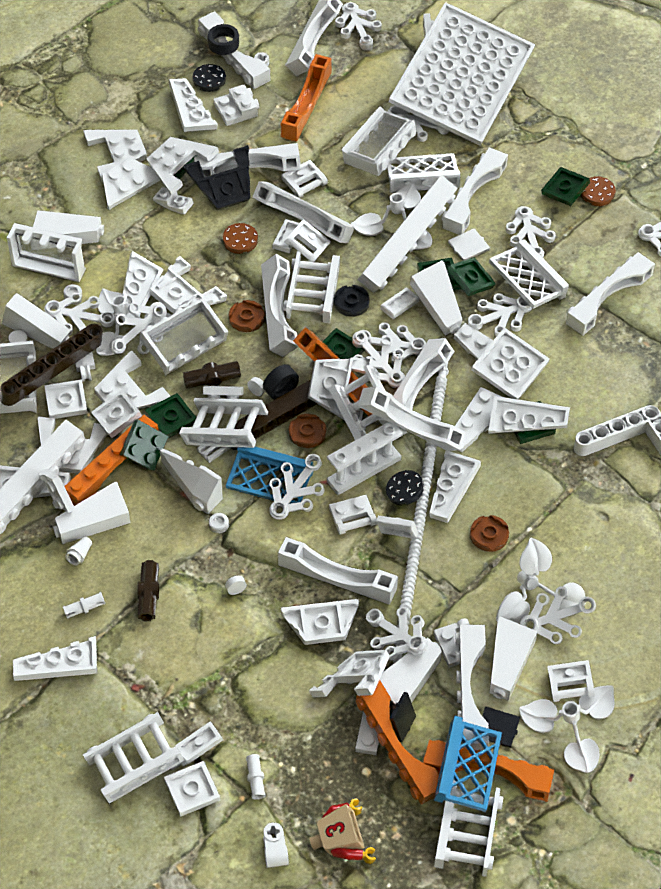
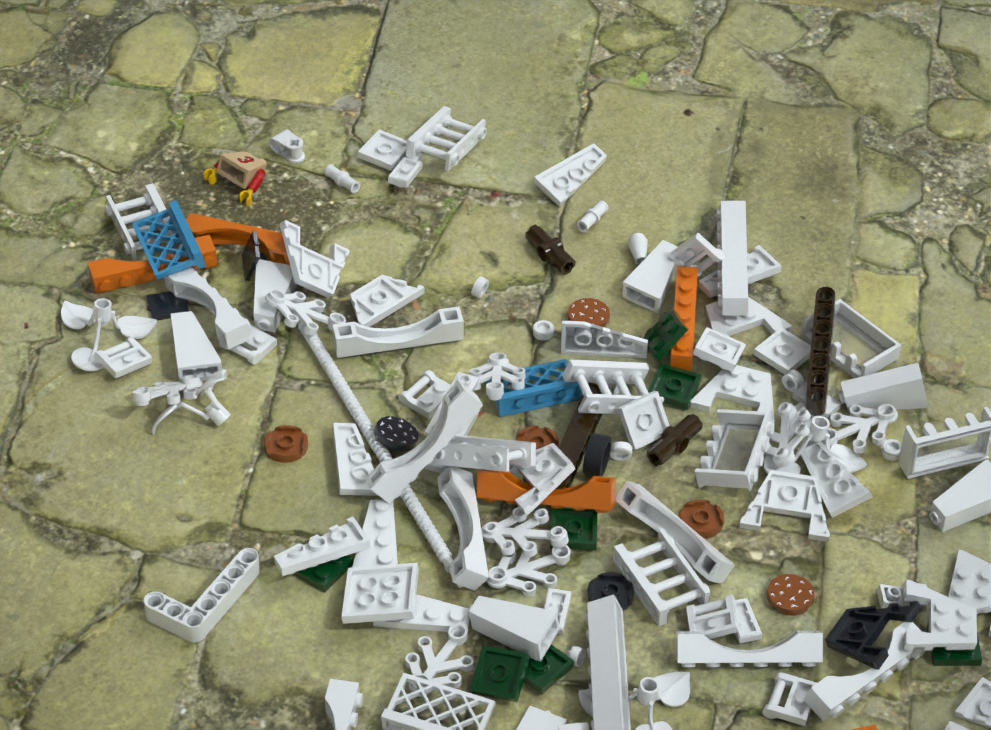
camera: 145 degrees right, 10 degrees down
(173, 515) = (589, 311): none -> dark orange tile
(397, 527) = (373, 391): white plate -> none
(410, 269) = (577, 654): none -> white hinge

